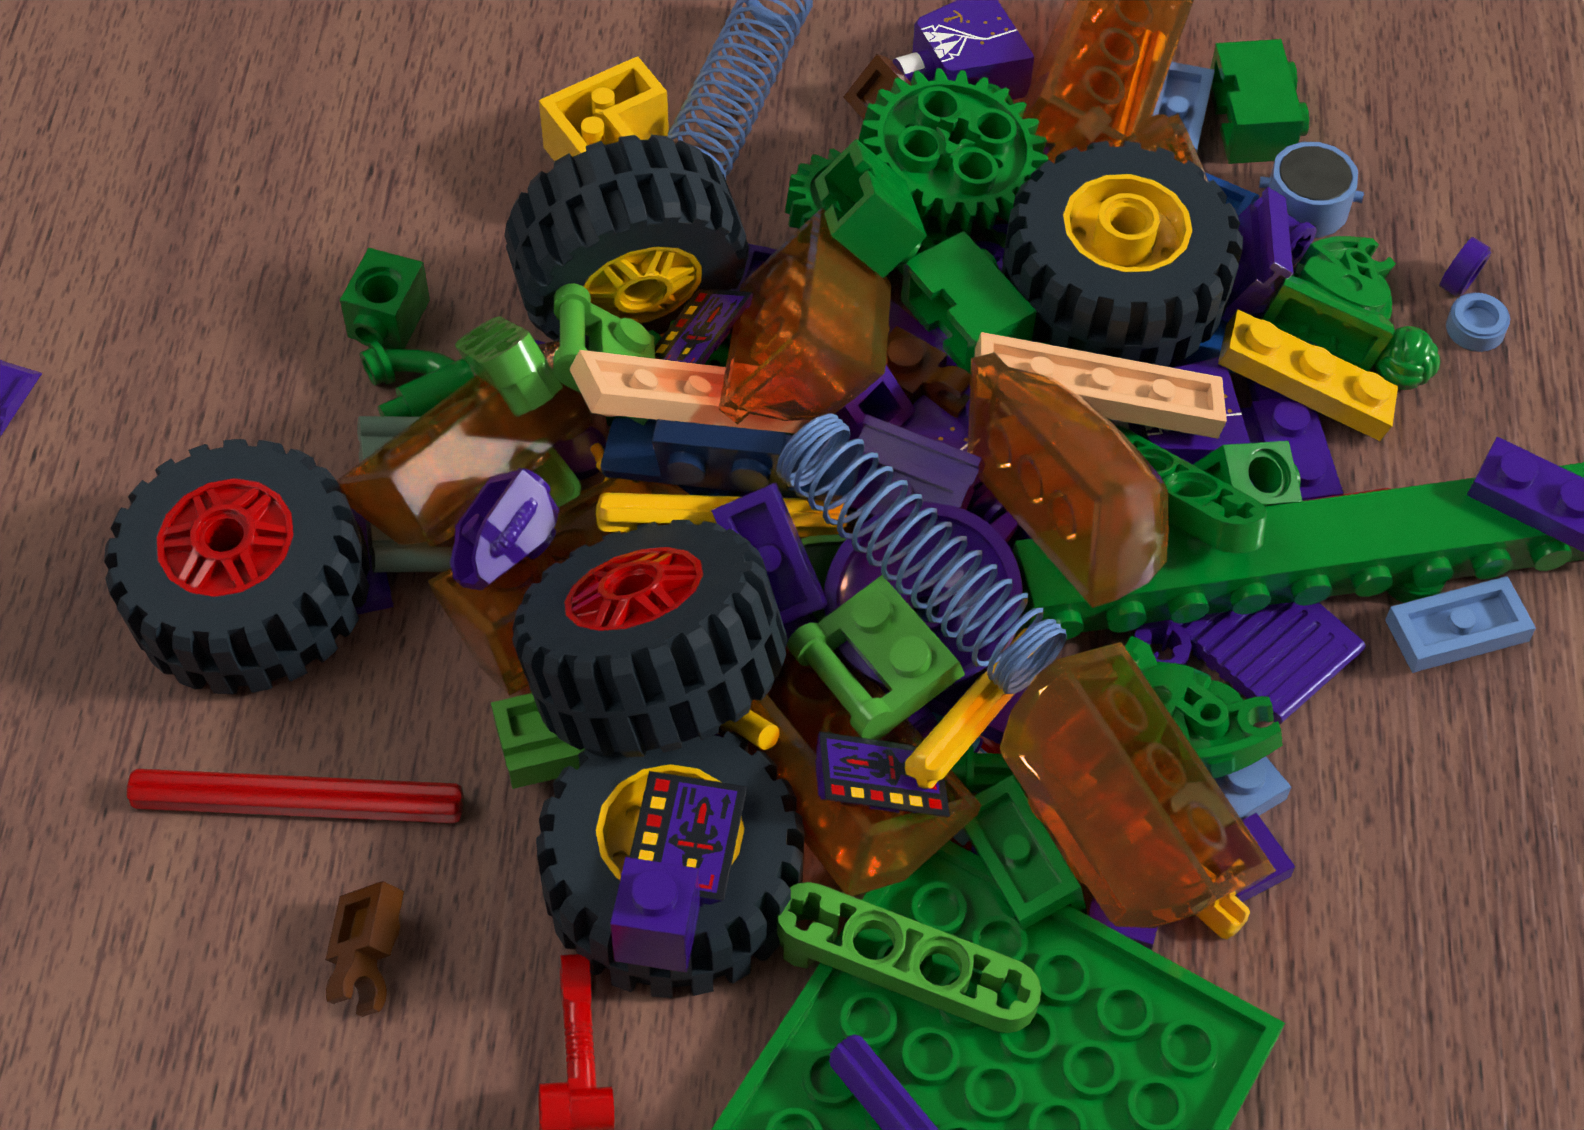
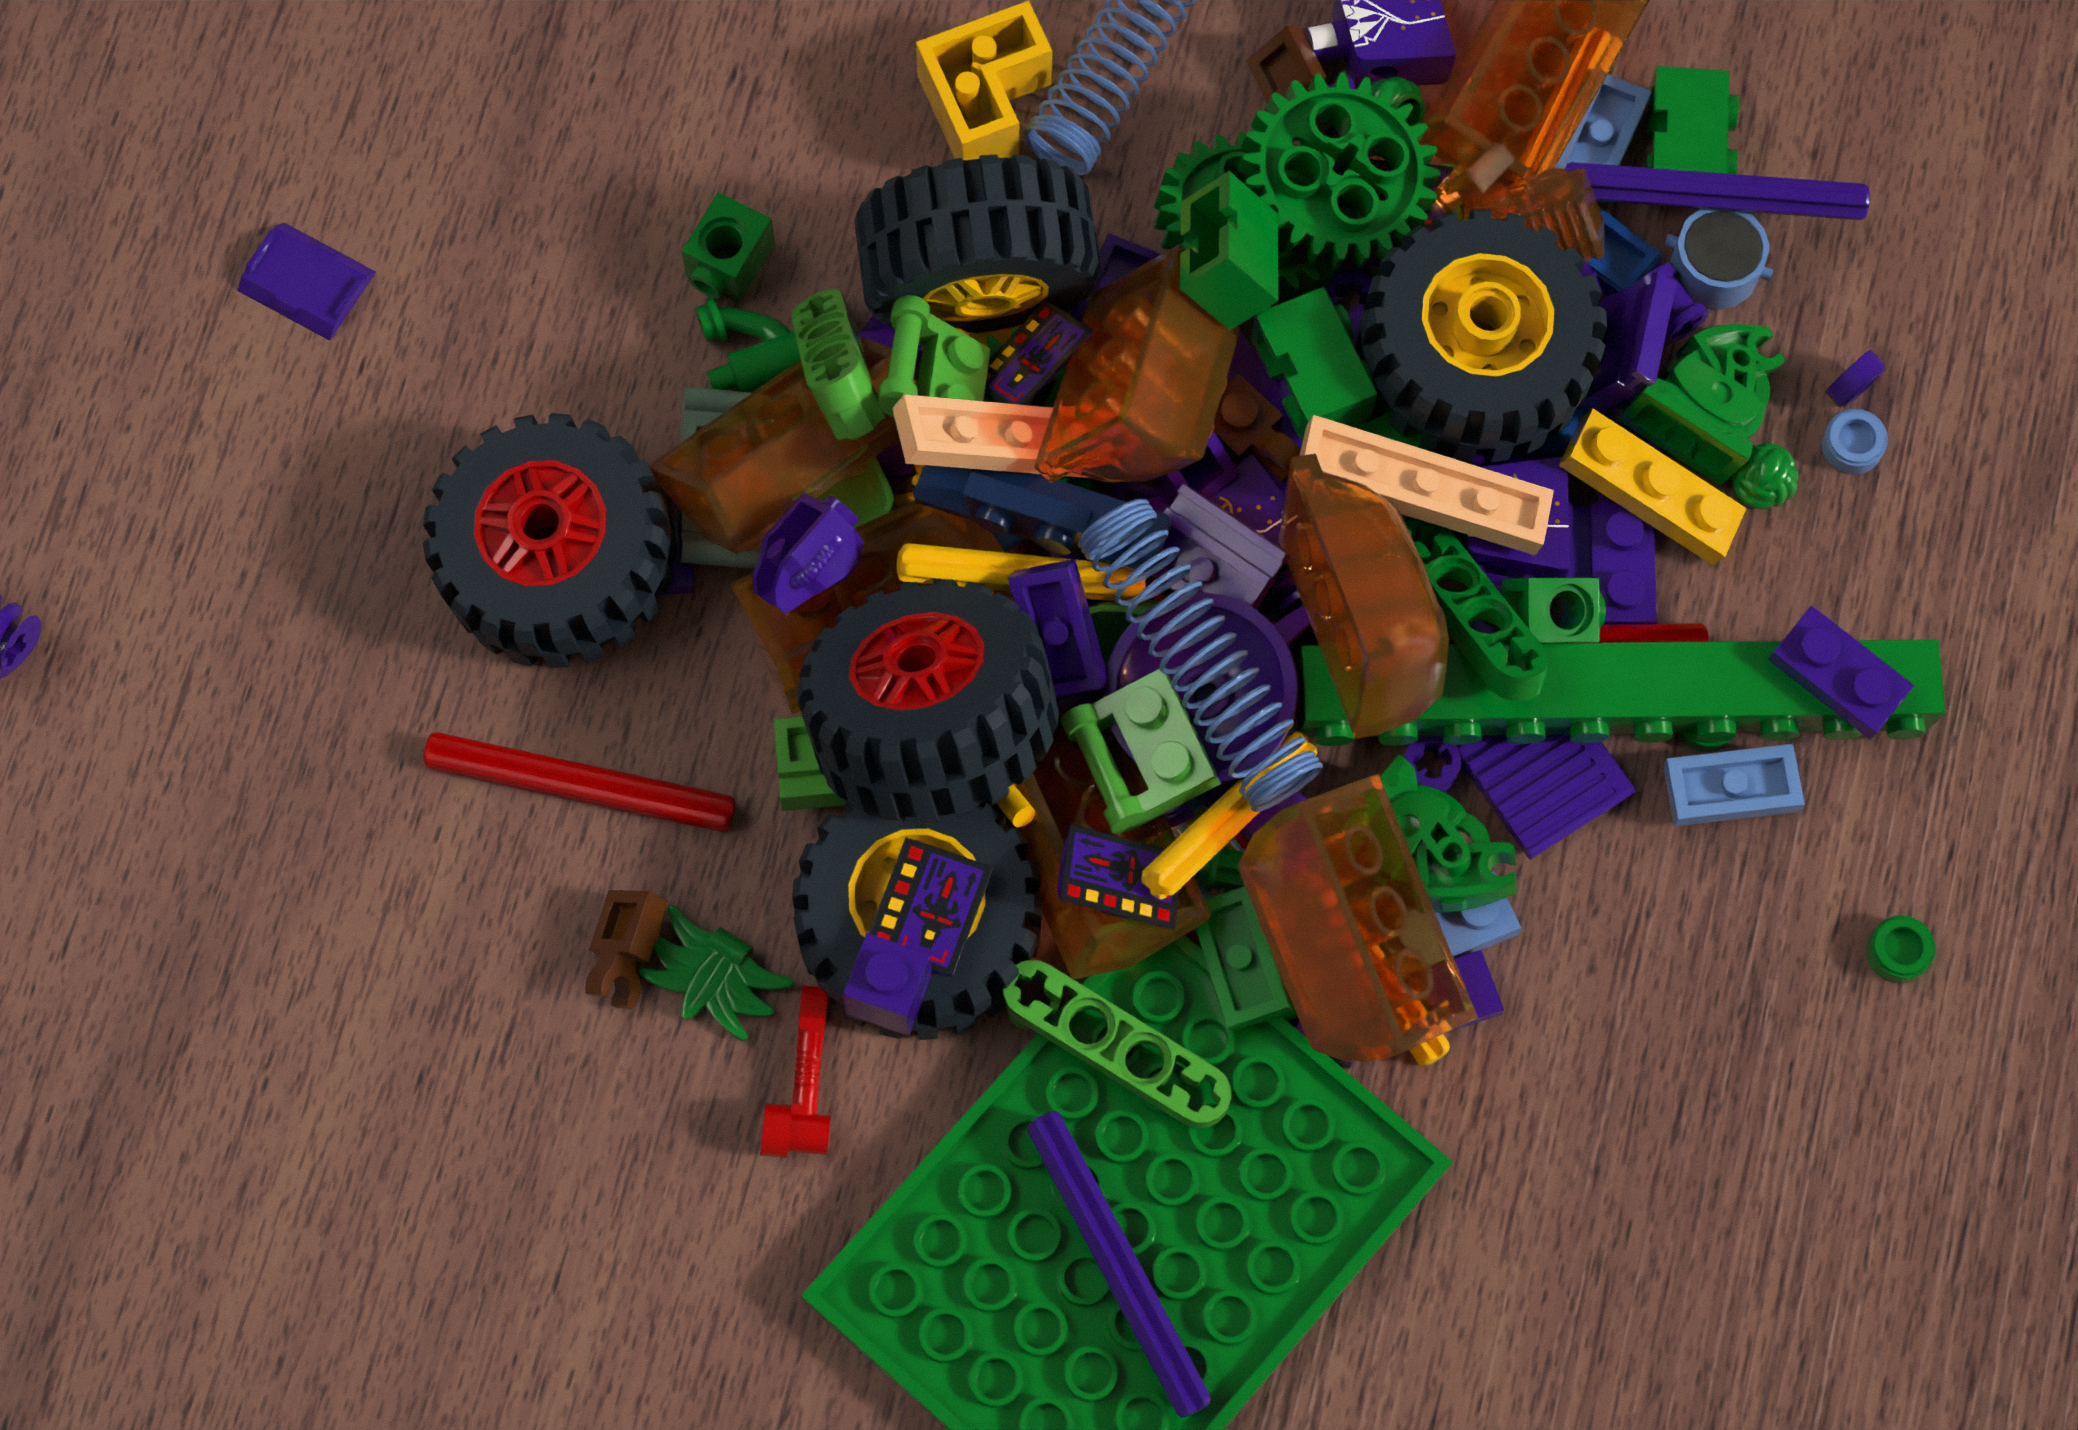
camera: 10 degrees right, 15 degrees up
(463, 964) = (713, 974): none -> green piece
(1312, 127) = (1727, 191): none -> dark purple axle

